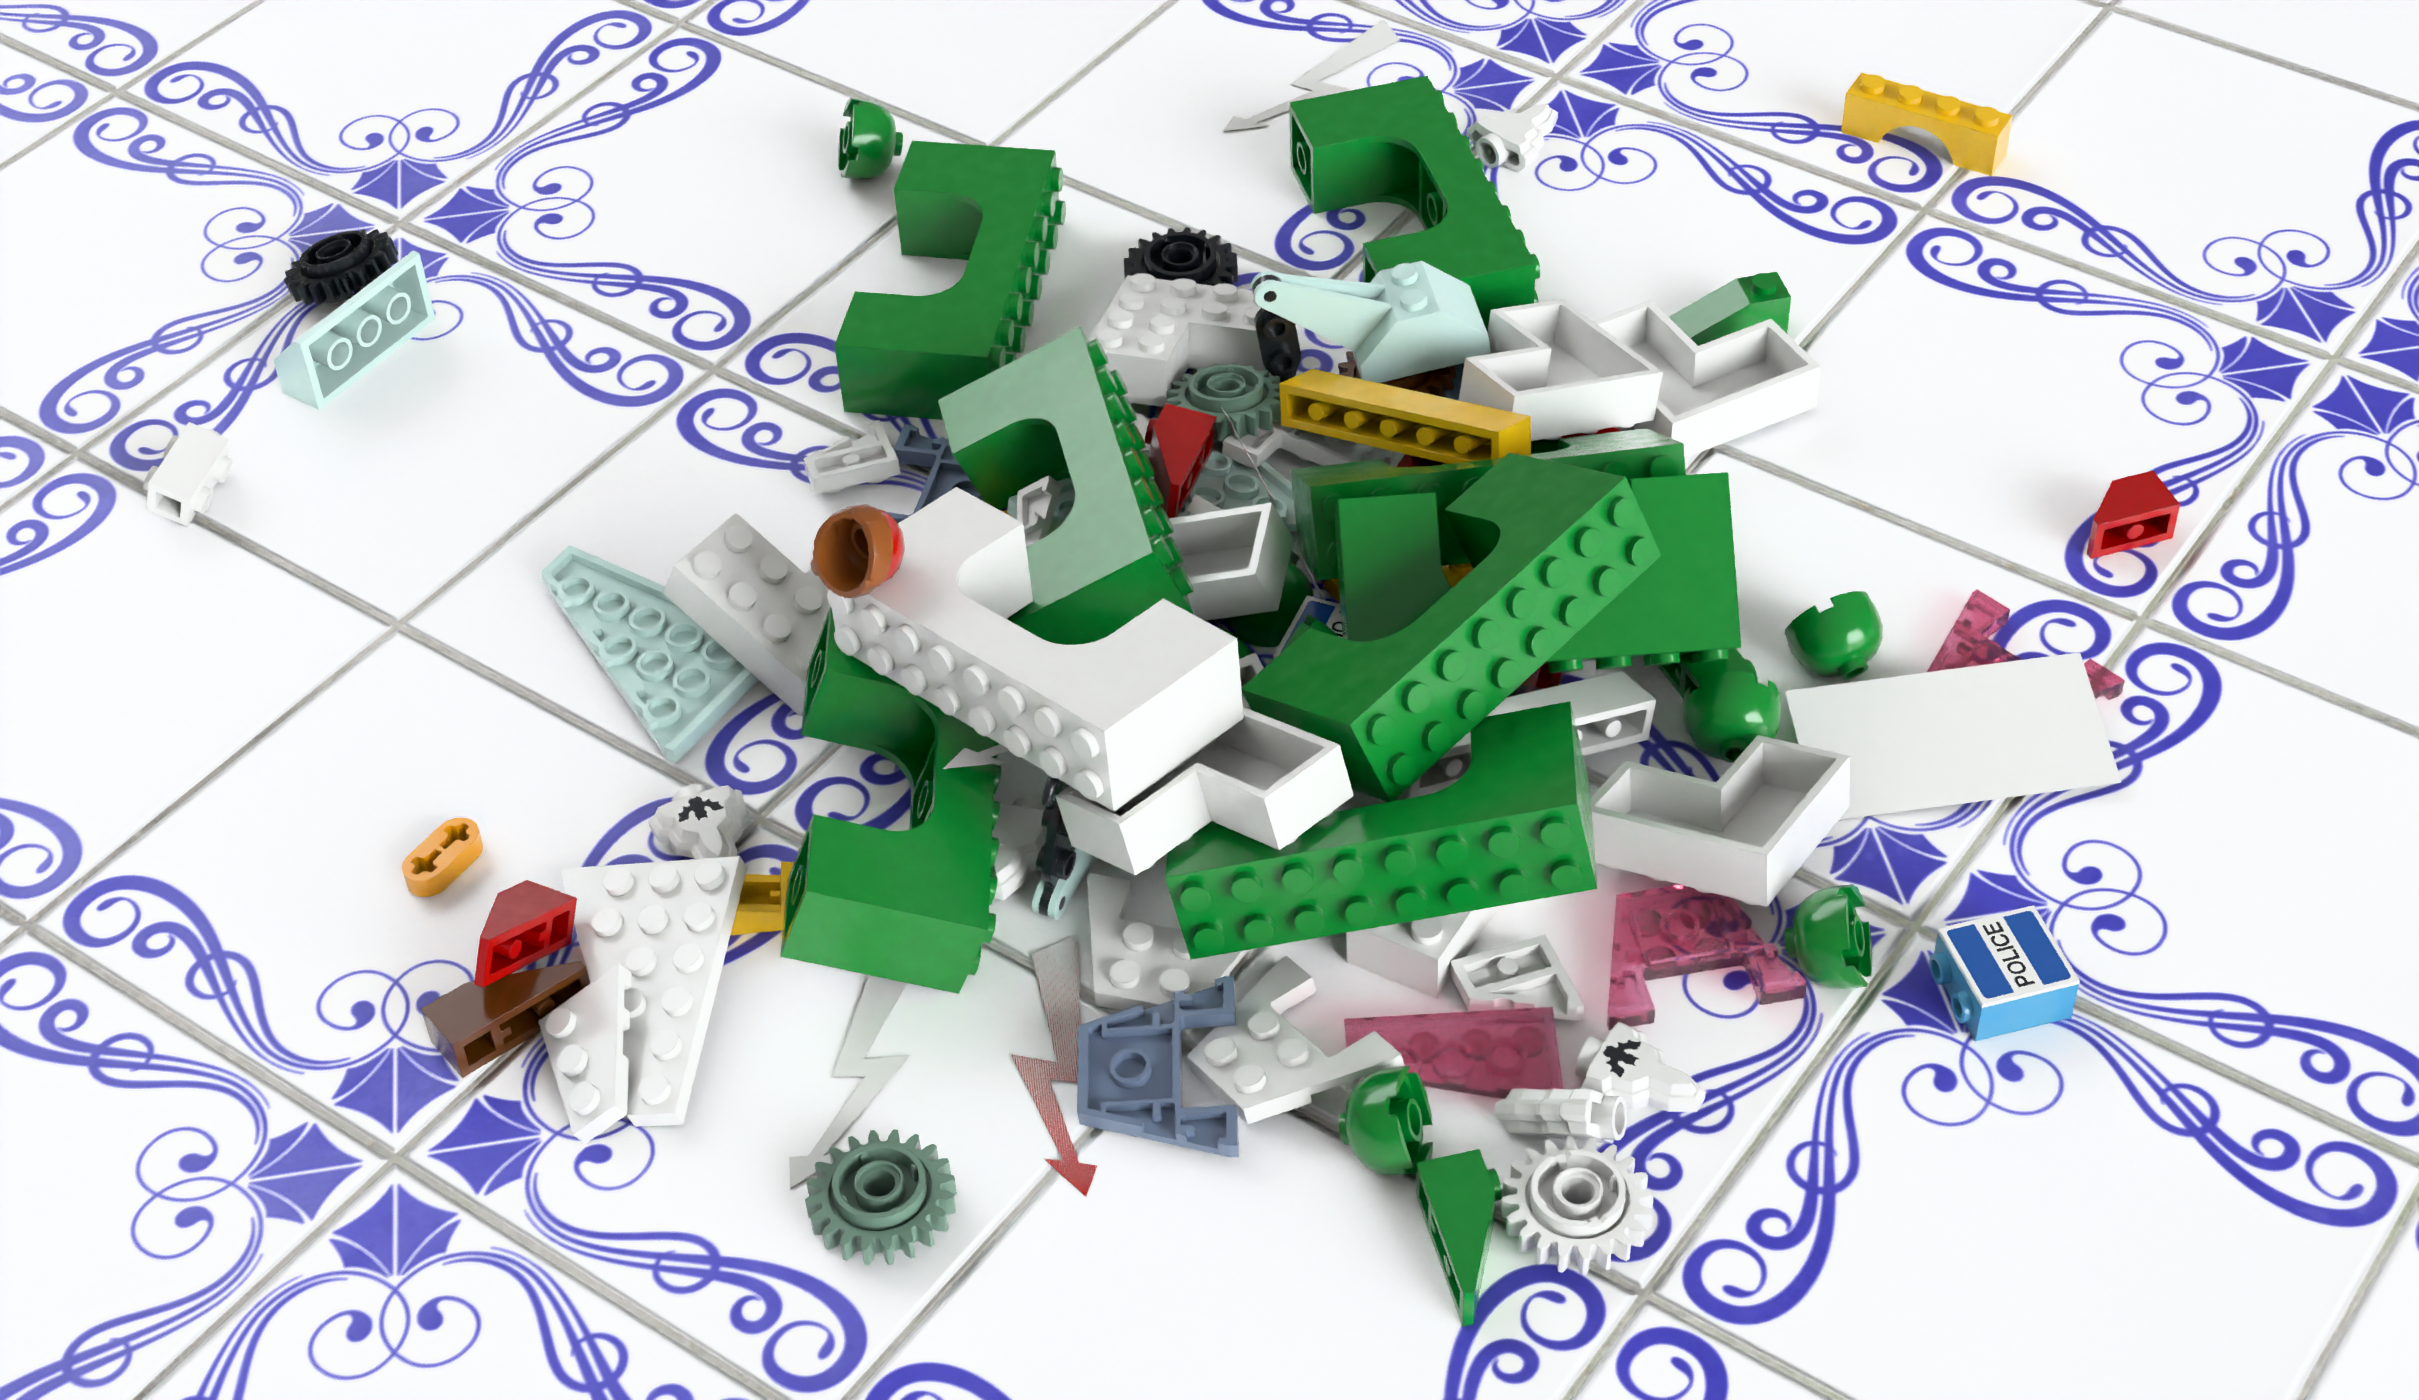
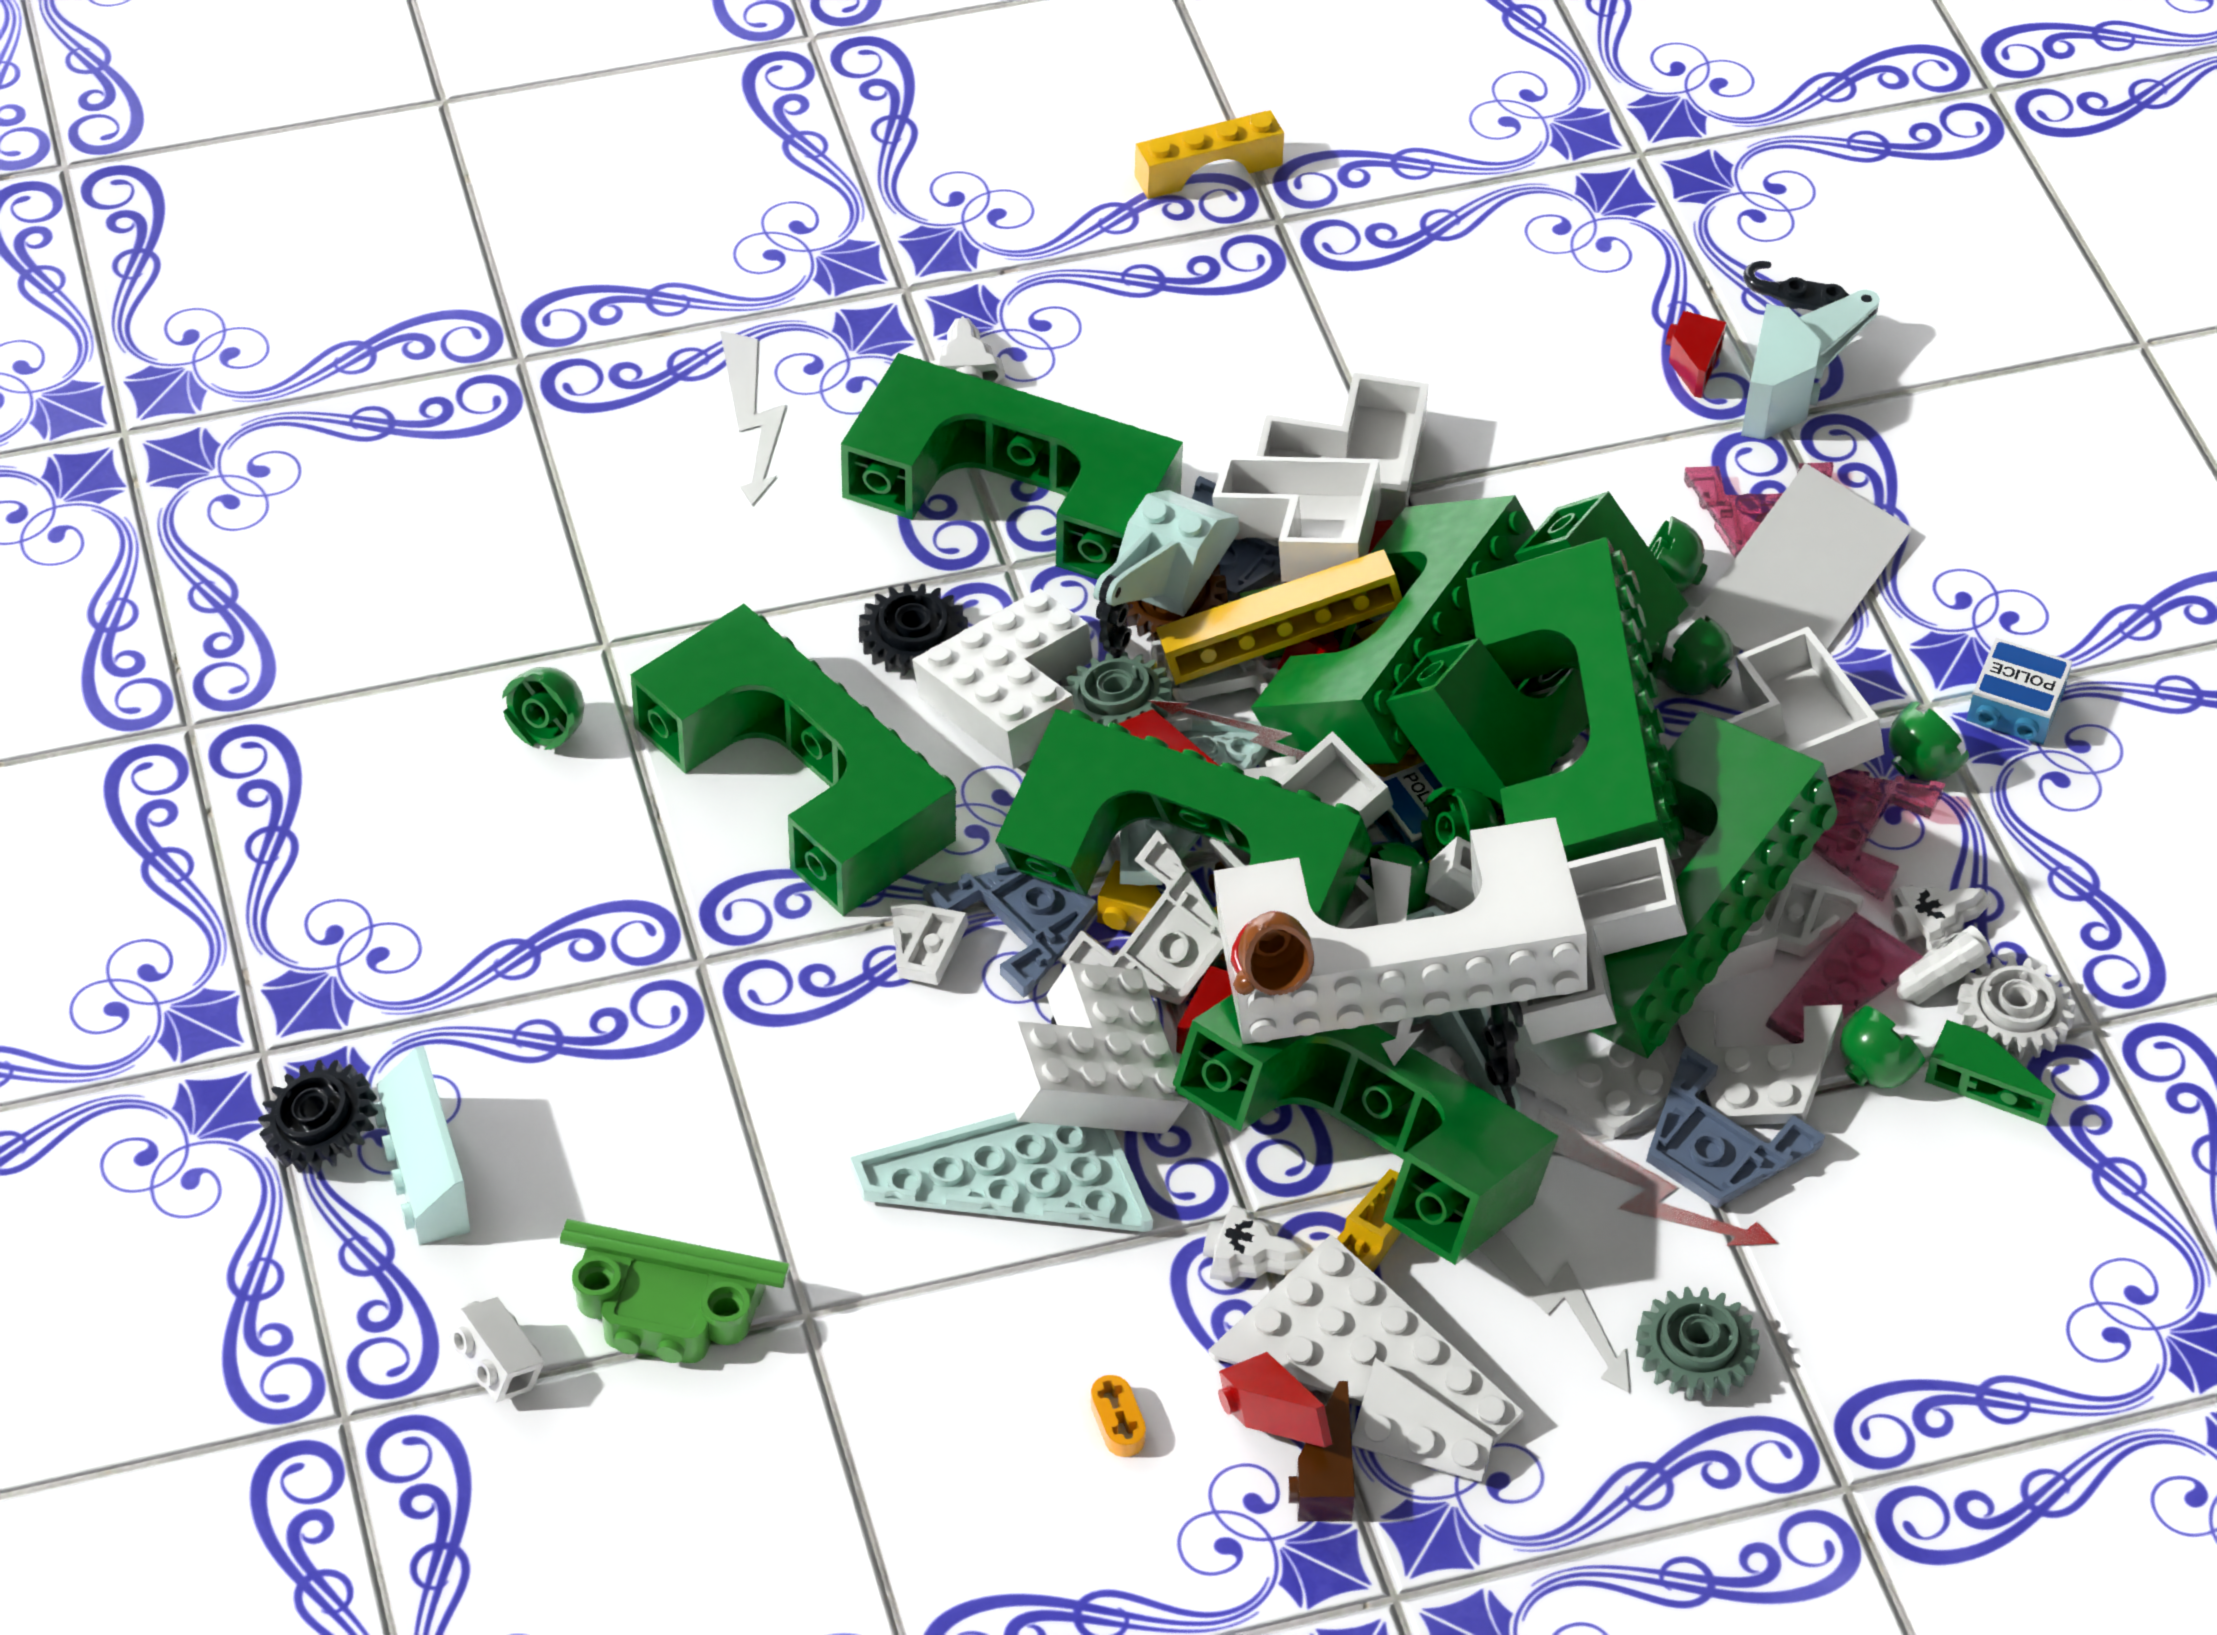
camera: 55 degrees left, 5 degrees up
(327, 526) = (665, 1292): none -> bright green brick
(1736, 307) = (1300, 382): slope -> none
(2174, 567) = (1798, 348): none -> light aqua slope

